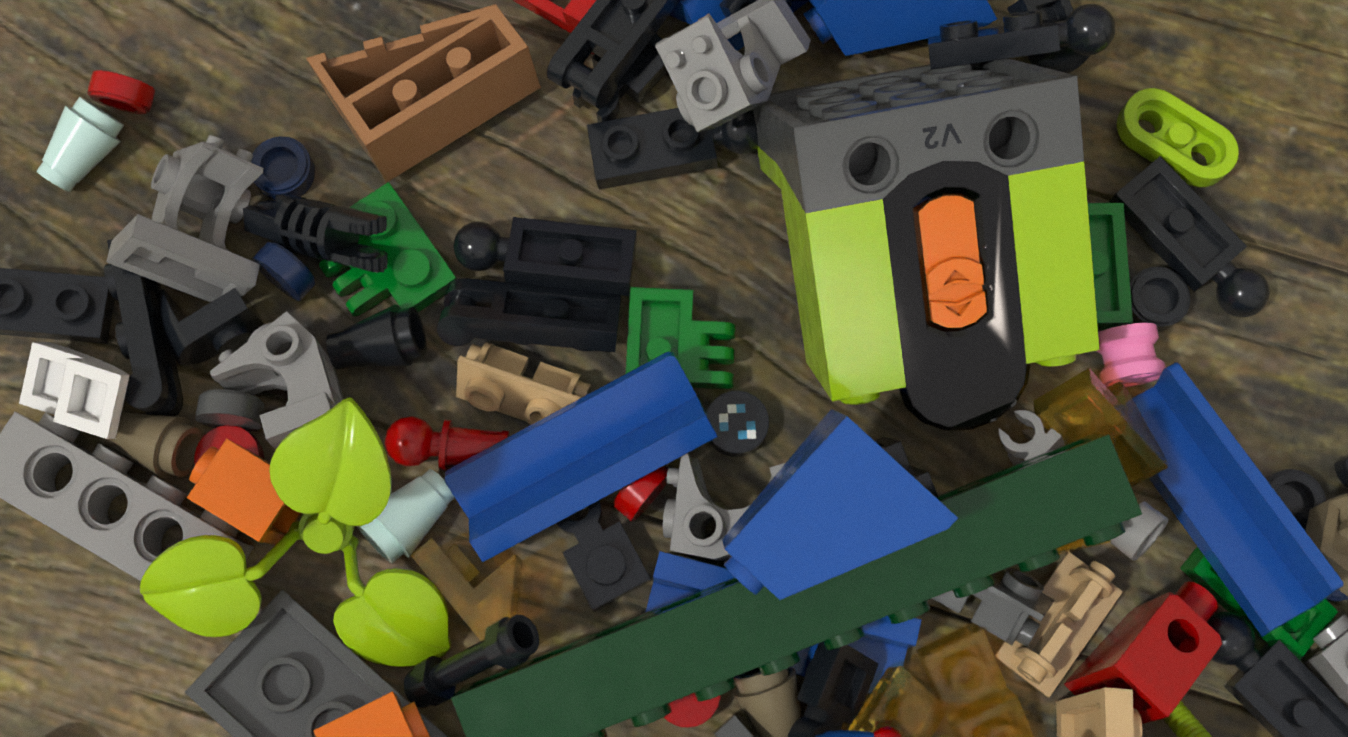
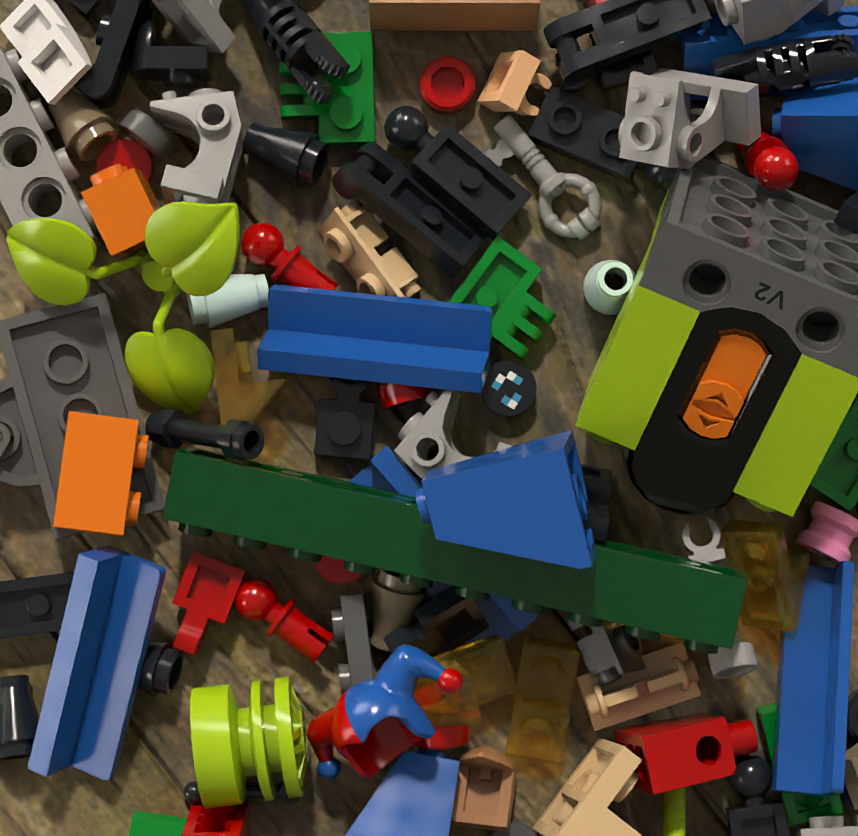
camera: 30 degrees right, 10 degrees up
(284, 270) = (251, 52): dark blue tile -> none
(491, 187) = (447, 85): none -> red tile
(547, 144) = (510, 81): none -> light nougat tile
(589, 196) = (552, 183): none -> light grey piece
(762, 275) = (599, 294): none -> light aqua cone
(832, 58) = (770, 162): none -> red pin

